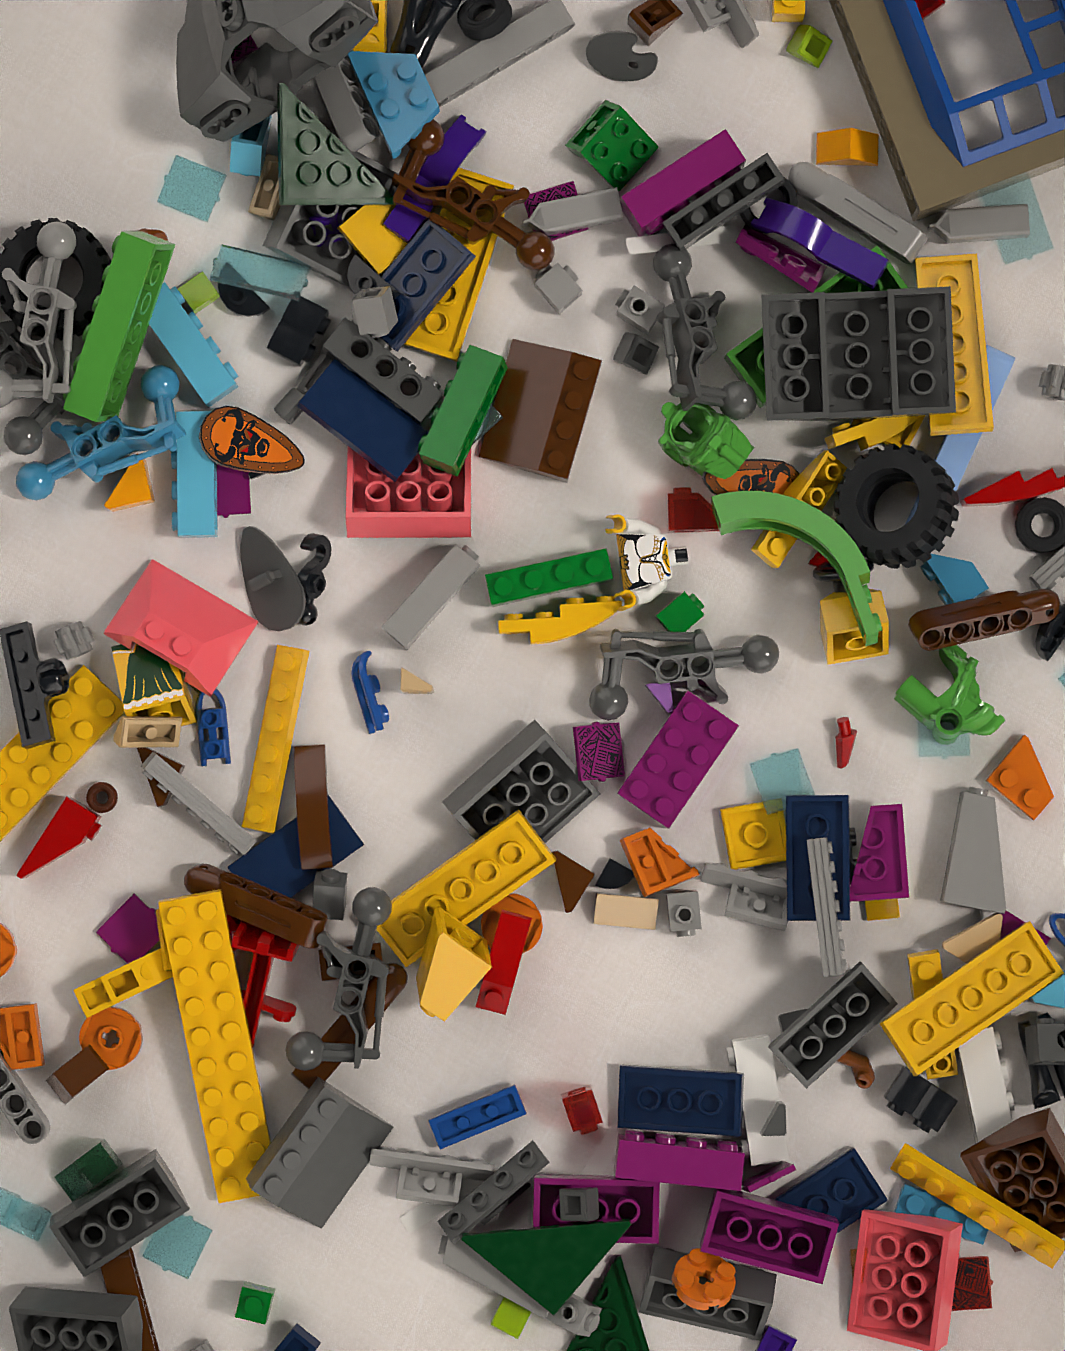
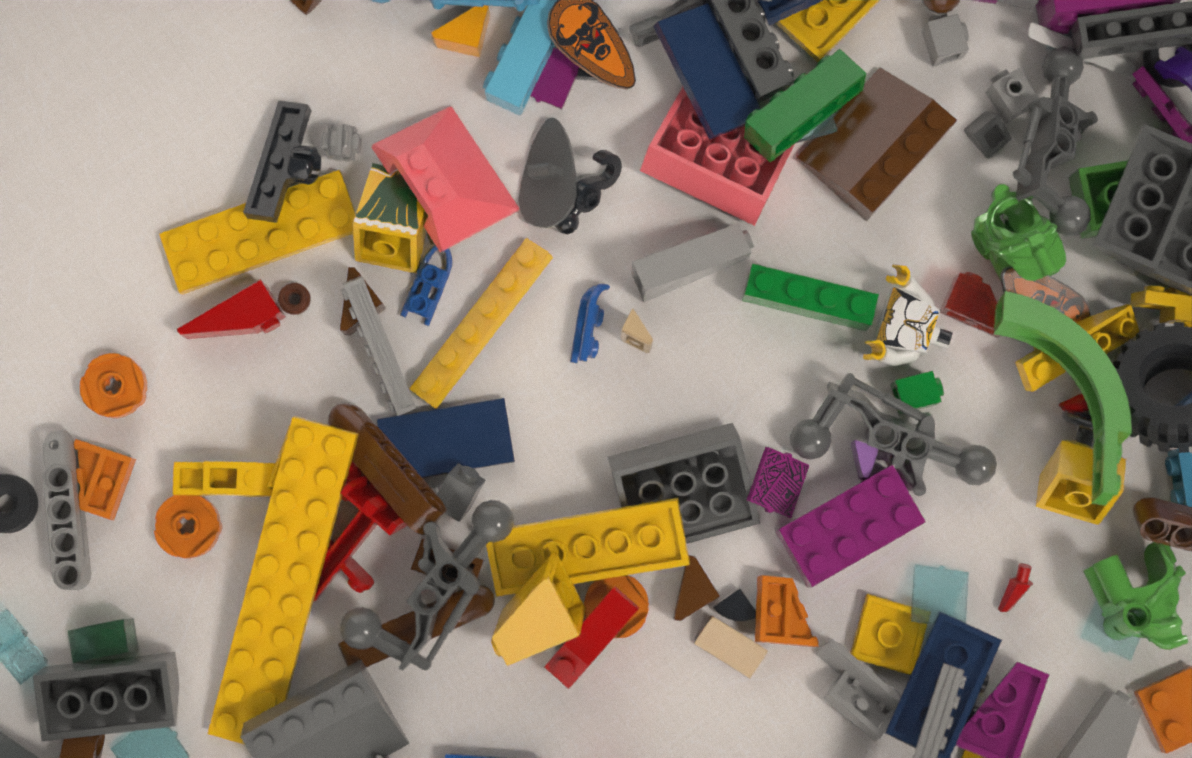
camera: 25 degrees right, 5 degrees down
(77, 1074) = (138, 543): reddish brown slope -> none
(131, 930) = (258, 434): magenta piece -> none
(148, 732) = (366, 256): tan slope -> none
(312, 807) = (483, 403): reddish brown slope -> none
(574, 619) = (813, 349): yellow slope -> none
(683, 913) = (786, 675): light grey brick -> none

